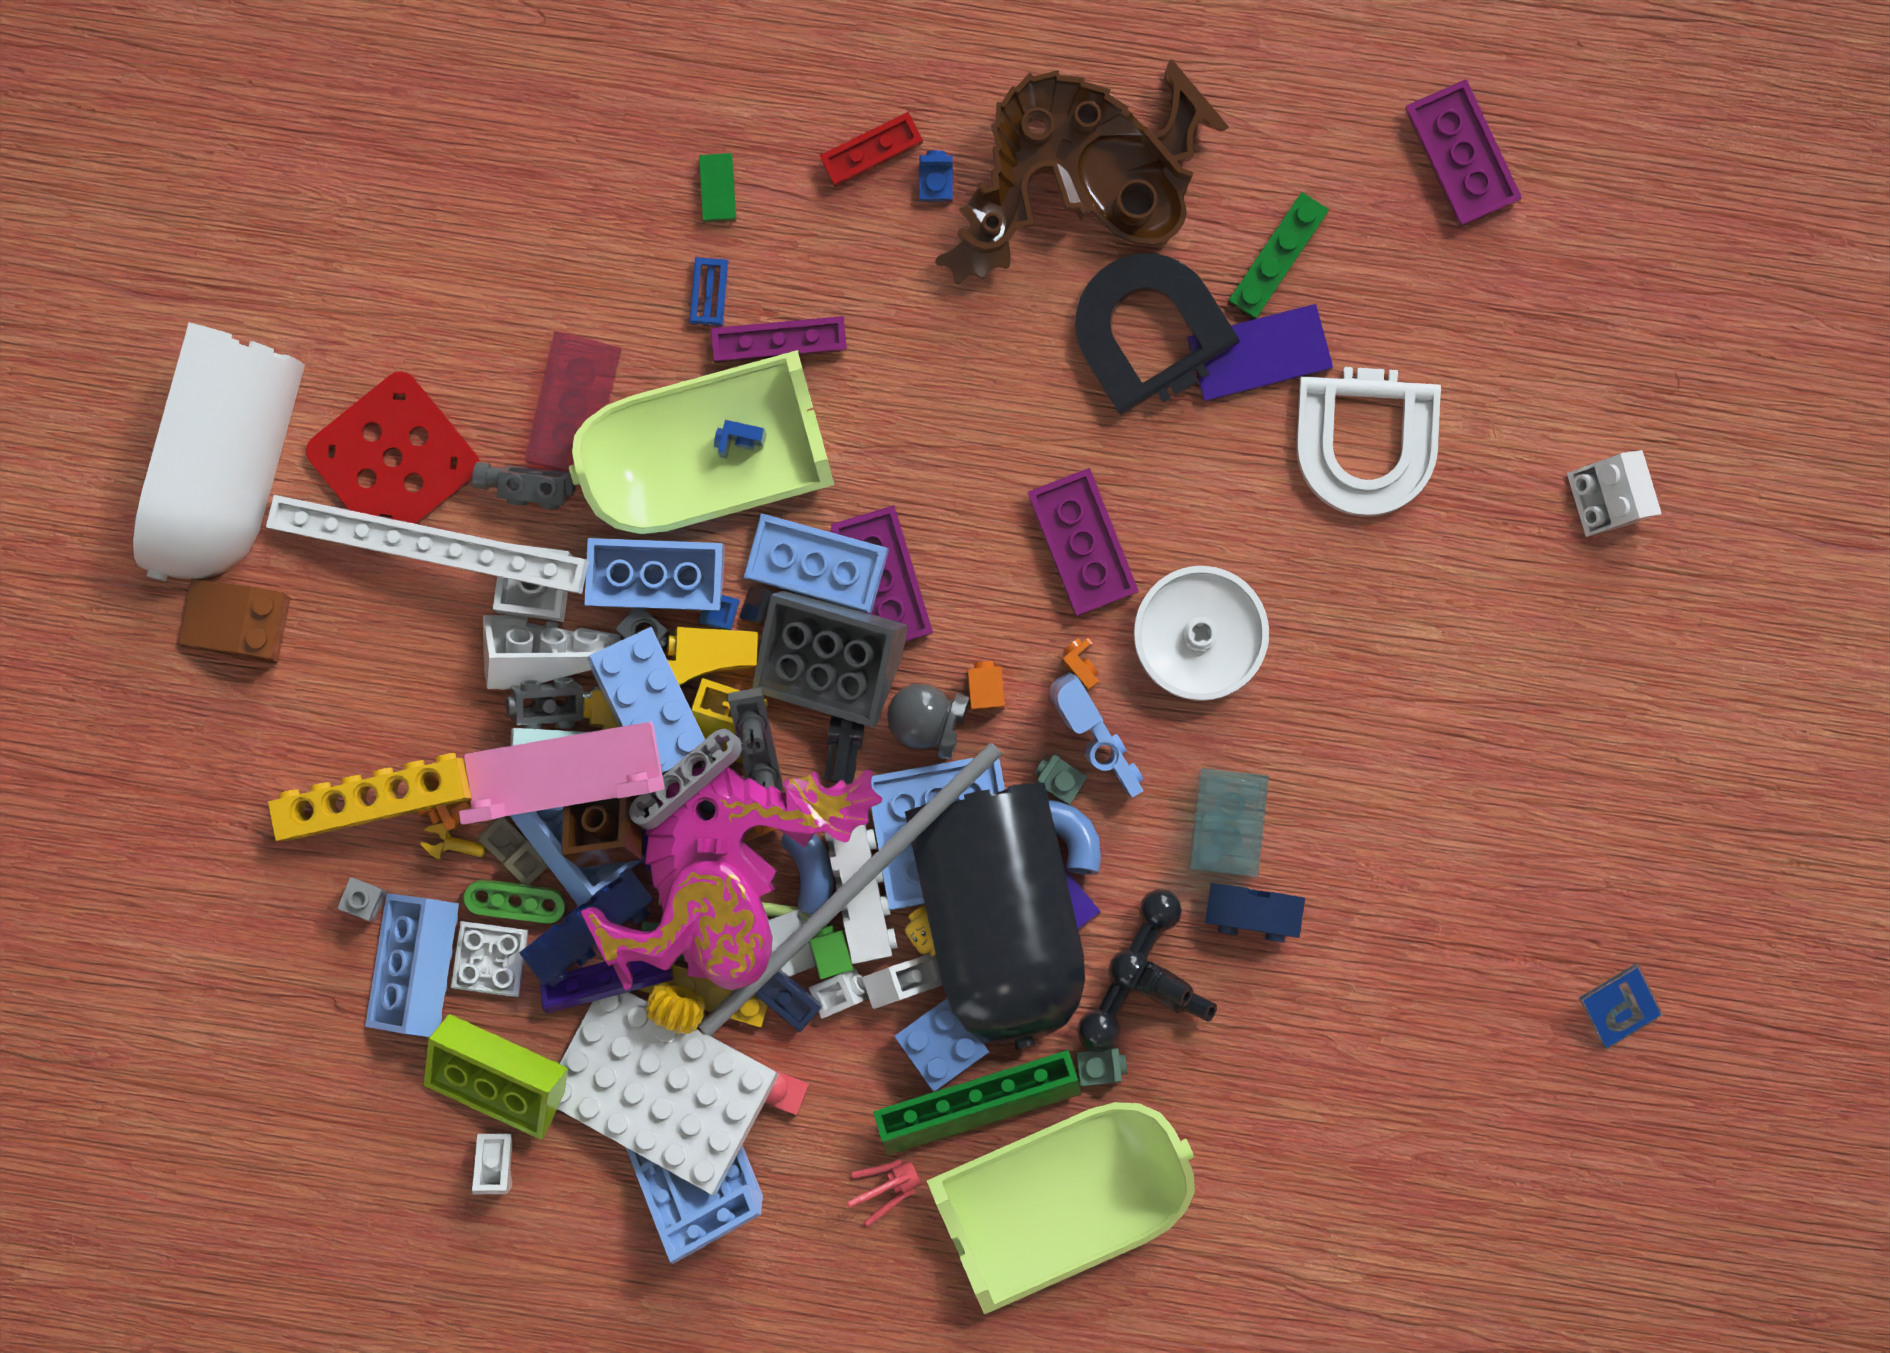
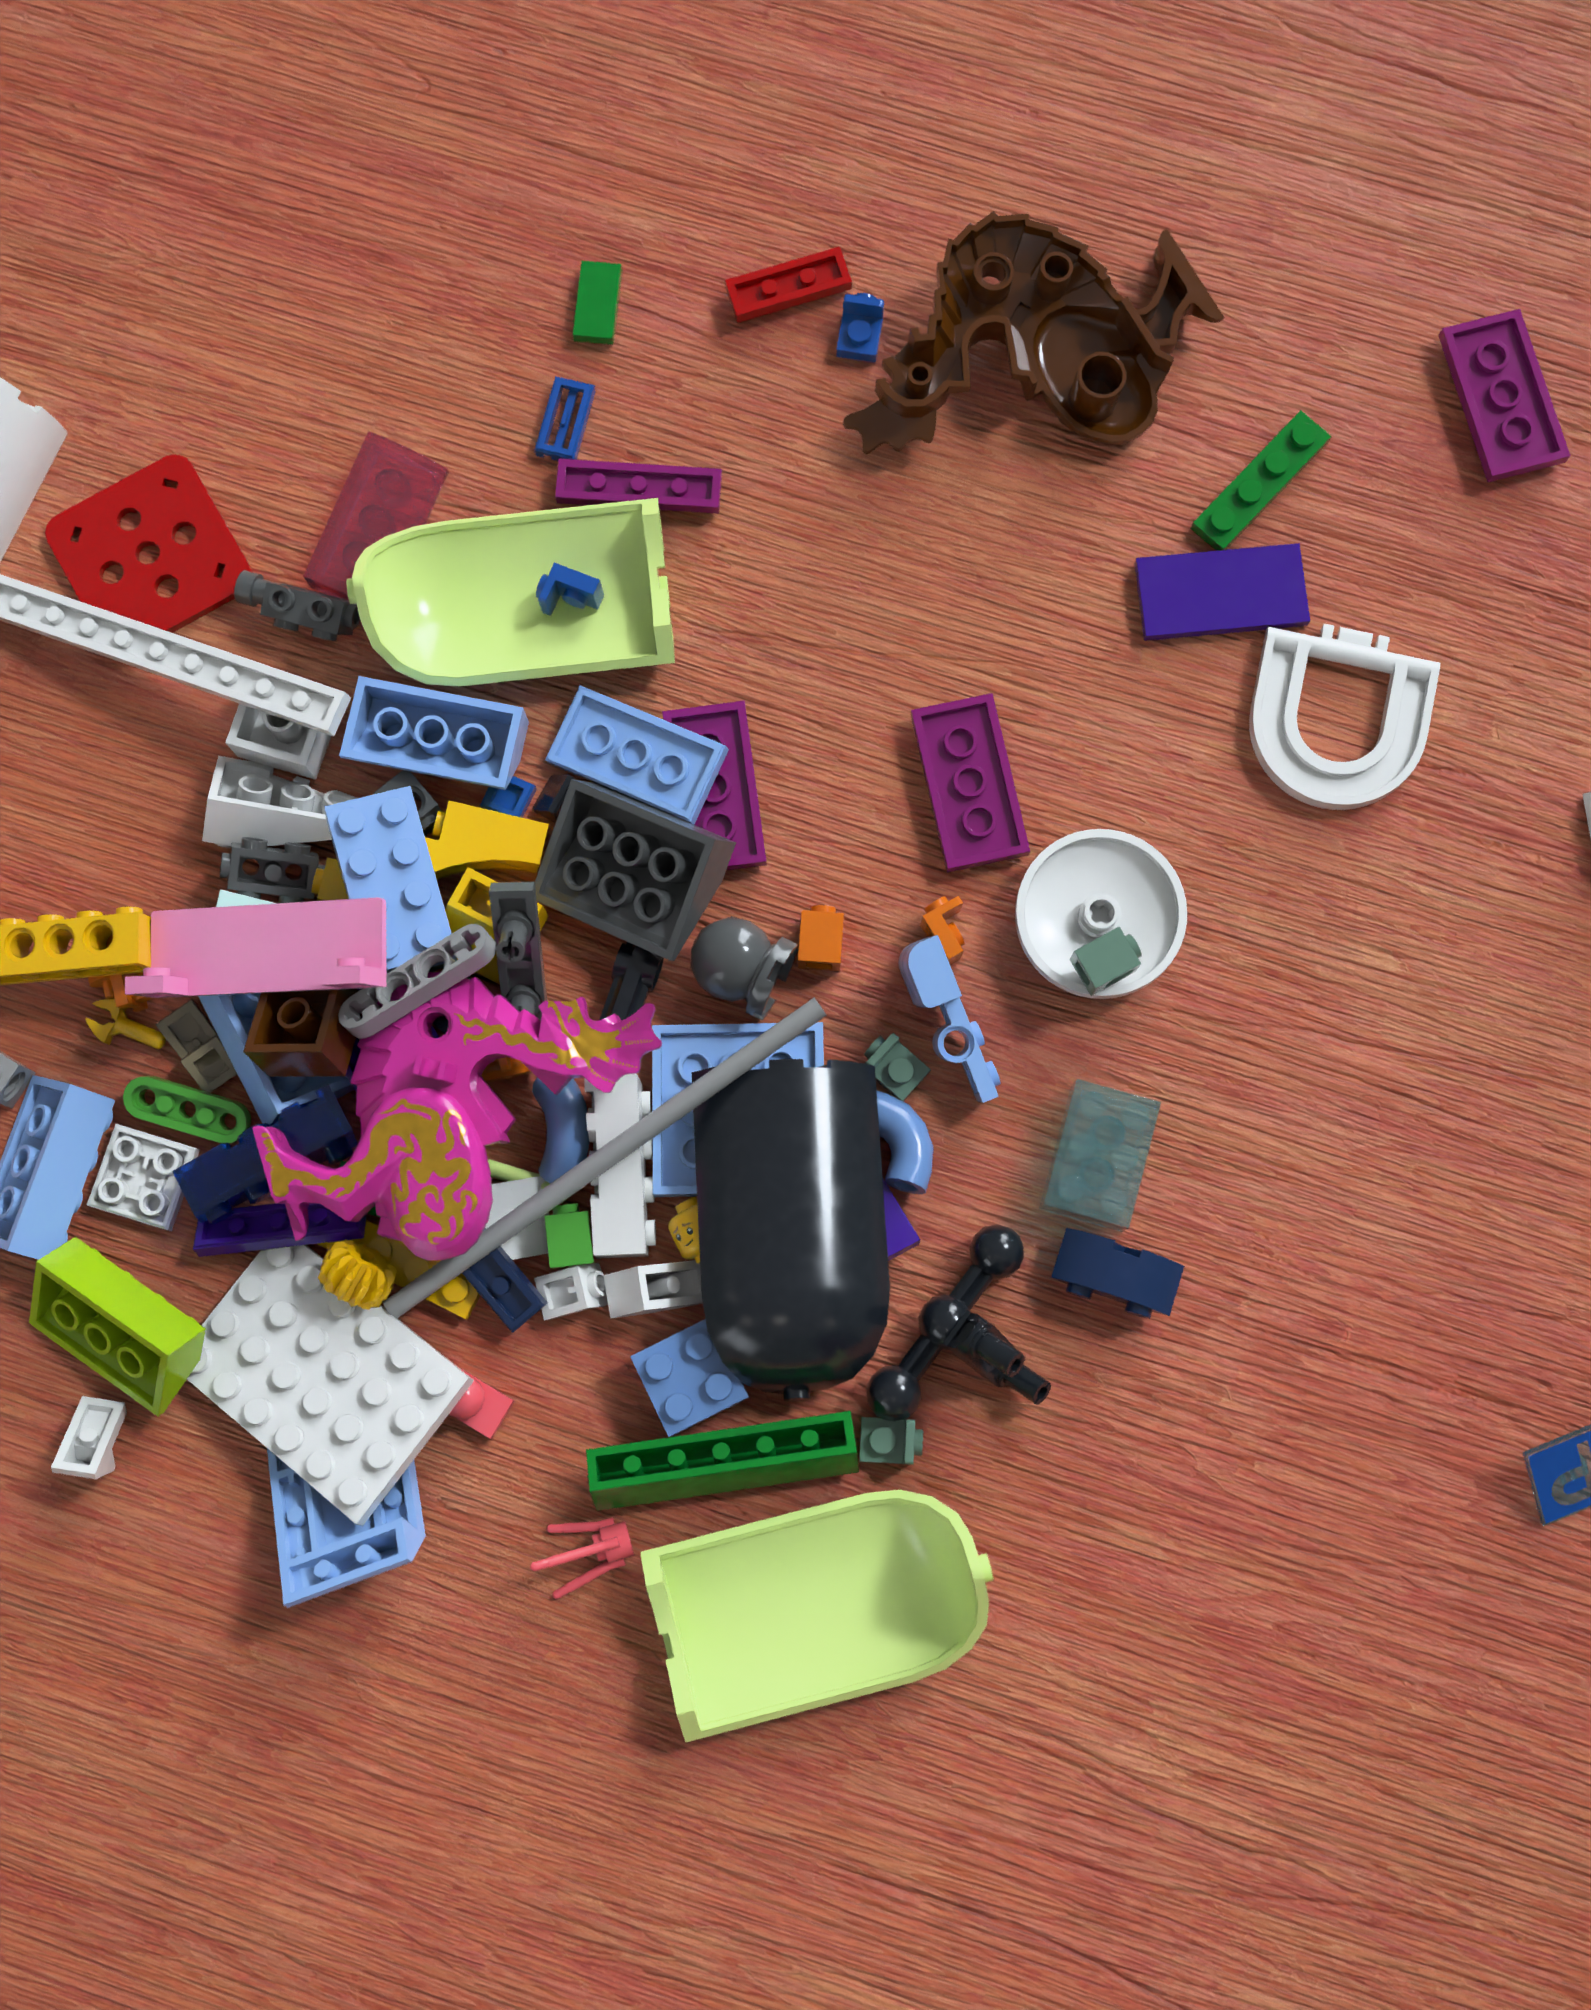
camera: 10 degrees right, 5 degrees down
(1189, 295) = (1105, 478): black piece -> none
(1210, 672) = (1106, 960): none -> sand green brick

